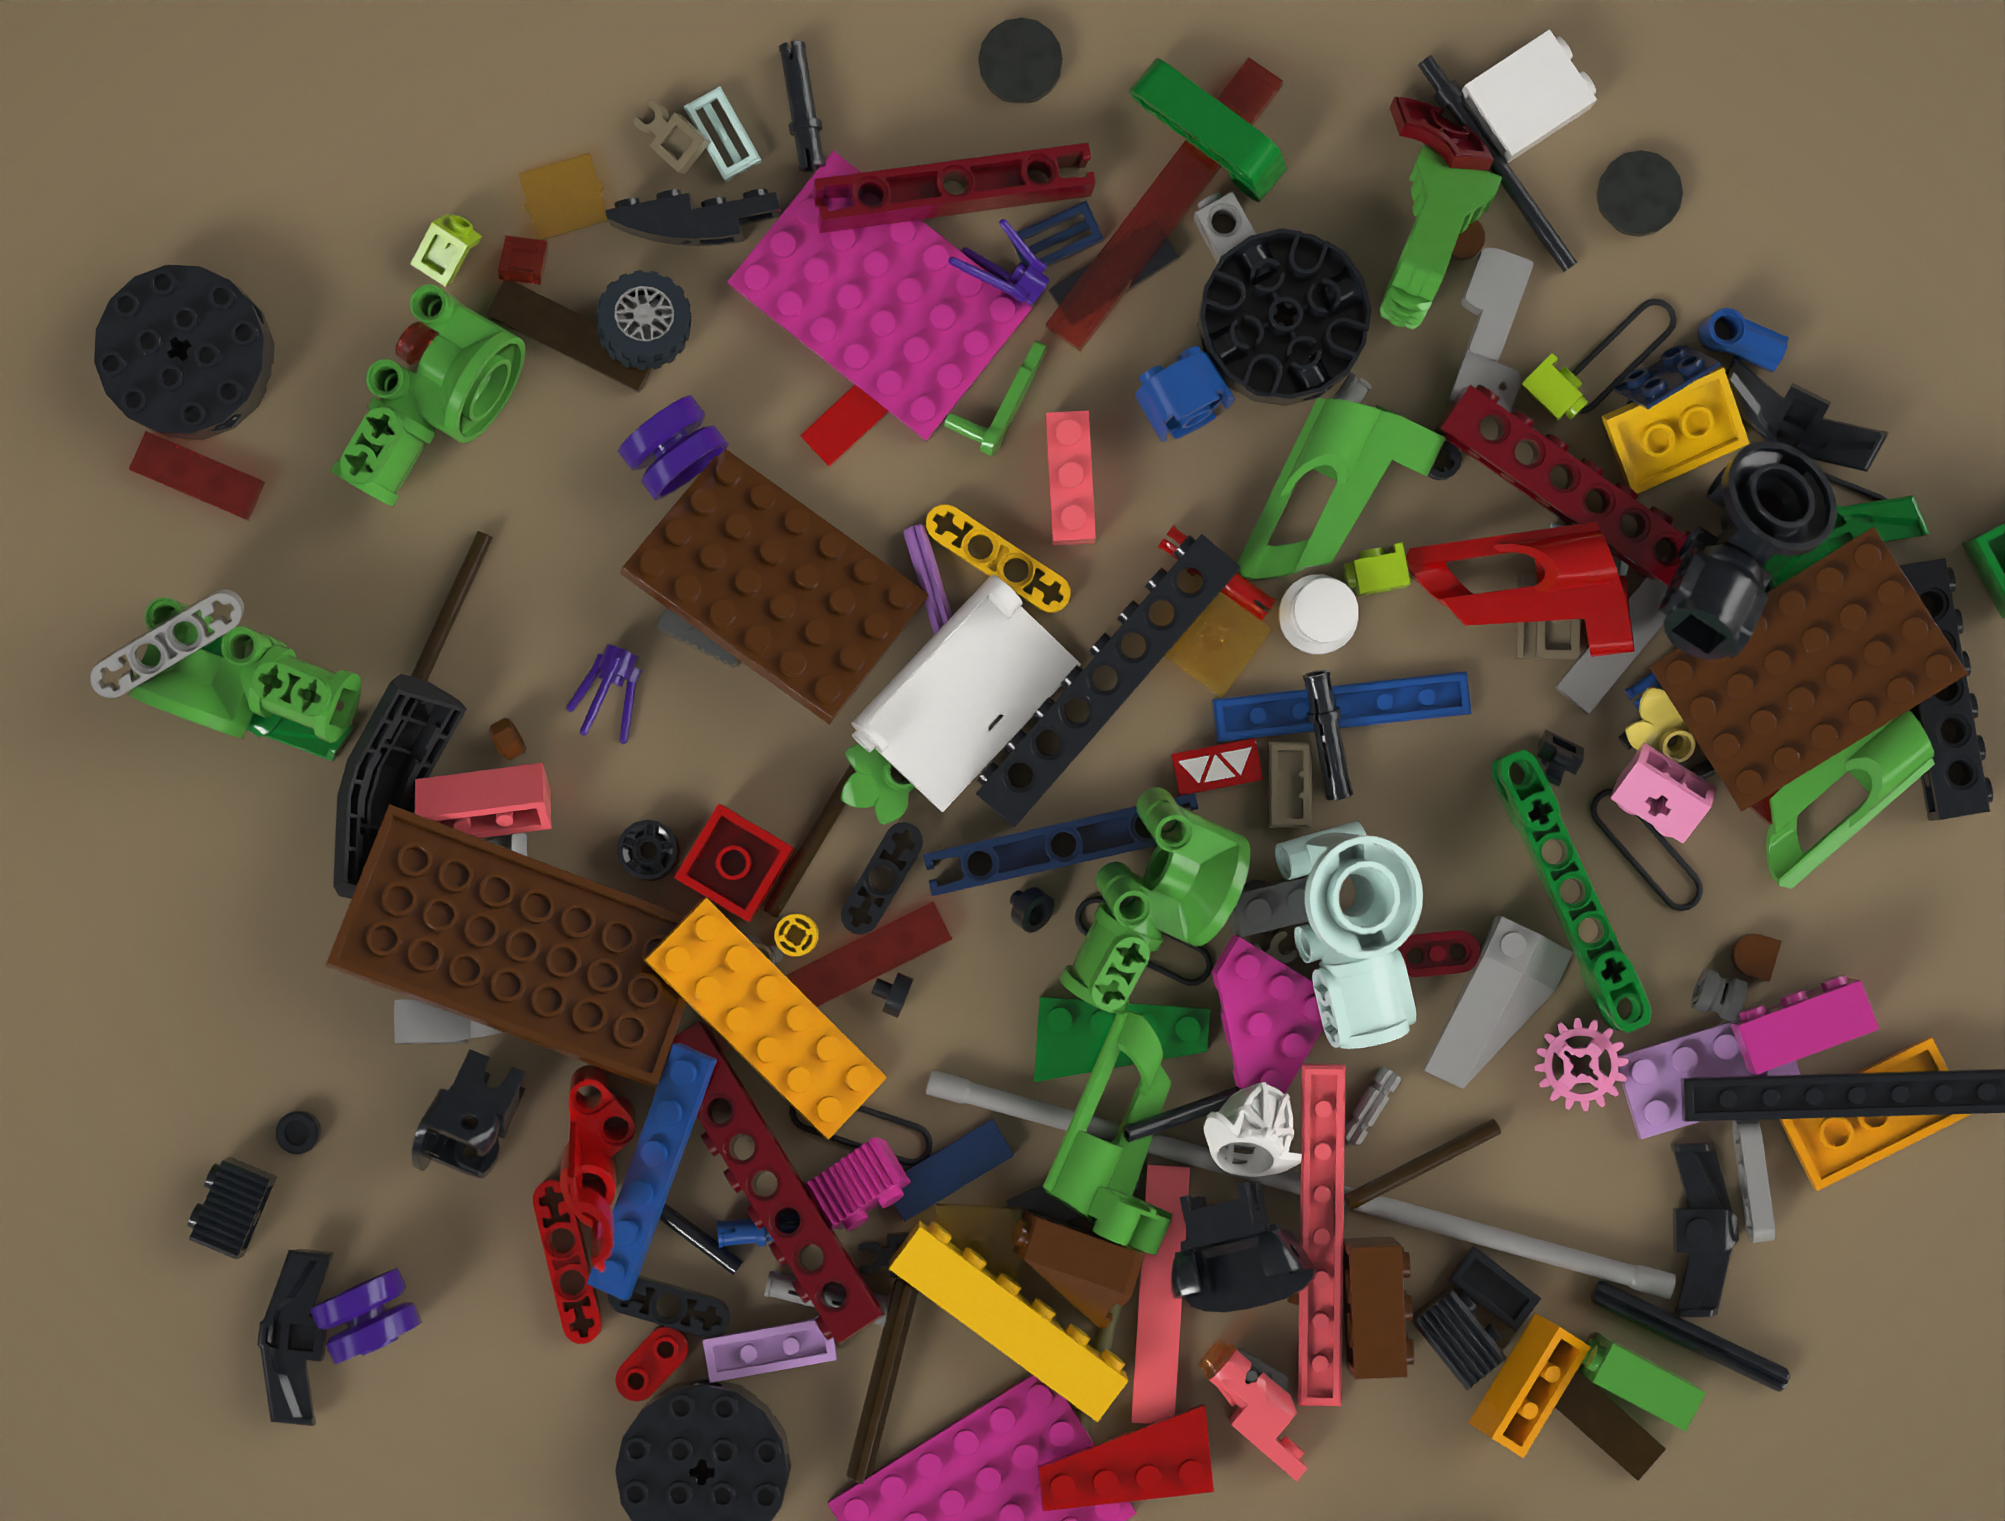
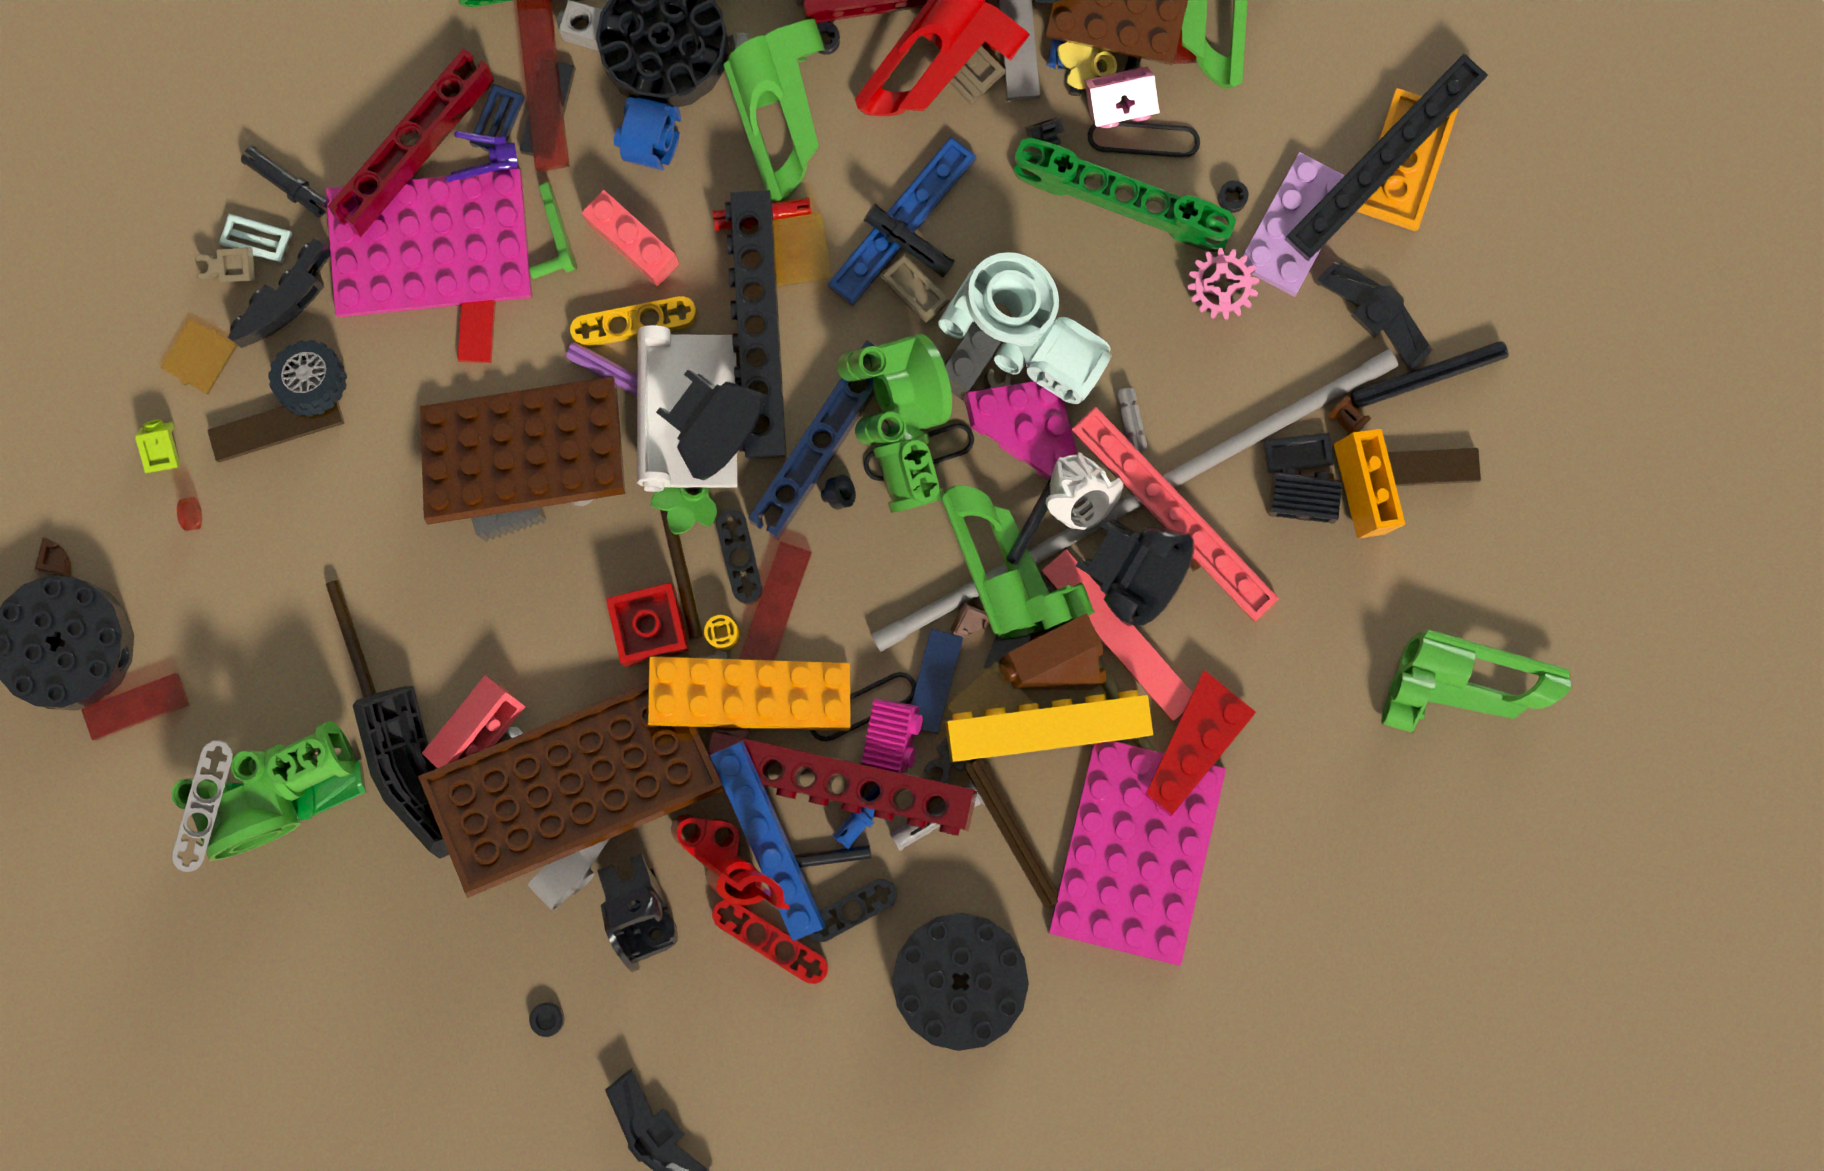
camera: 40 degrees left, 5 degrees down
(231, 1207) = (548, 1098): black brick -> none
(251, 261) = (53, 559): none -> reddish brown tile
(365, 1314) = (683, 1081): dark purple wheel -> none
(456, 389) = (236, 512): bright green piece -> none
(507, 739) = (453, 682): reddish brown tile -> none
(523, 260) = (208, 411): clear red tile -> none
(614, 668) = (476, 586): dark purple plant -> none
(631, 852) = (584, 657): black wheel -> none
(651, 1363) = (874, 952): red plate -> none
(672, 447) = (390, 429): dark purple wheel -> none
(767, 1350) = (932, 879): lavender plate -> none
(894, 994) = (807, 612): black tile -> none
(974, 740) = (713, 422): none -> black piece
(1020, 60) = (384, 44): pearl dark grey tile -> none
(1036, 1145) = (969, 620): none -> reddish brown tile
(1075, 1031) = (930, 537): green wing -> none
(1217, 767) = (865, 317): red tile -> none
(1261, 1399) = (1234, 638): coral plate -> none
(1318, 614) = (840, 181): white piece -> none
(1376, 1308) = (1244, 521): reddish brown brick -> none
(1377, 571) = (849, 128): lime brick -> none
(1422, 1164) = (1191, 422): dark brown bar -> none
(1436, 955) = (1085, 303): dark red plate -> none
(1497, 998) = (1141, 287): light grey wedge -> none
(1574, 1303) = (1349, 416): none -> reddish brown bush
(1641, 1381) = (1428, 420): bright green brick -> none
(1668, 999) = (1231, 186): none -> black bush
(1719, 995) = (1260, 175): dark grey wheel -> none
(1753, 1180) = (1378, 256): light grey beam -> none
(1755, 955) = (1259, 137): reddish brown tile -> none
(1804, 1023) = (1320, 142): dark pink wedge -> none

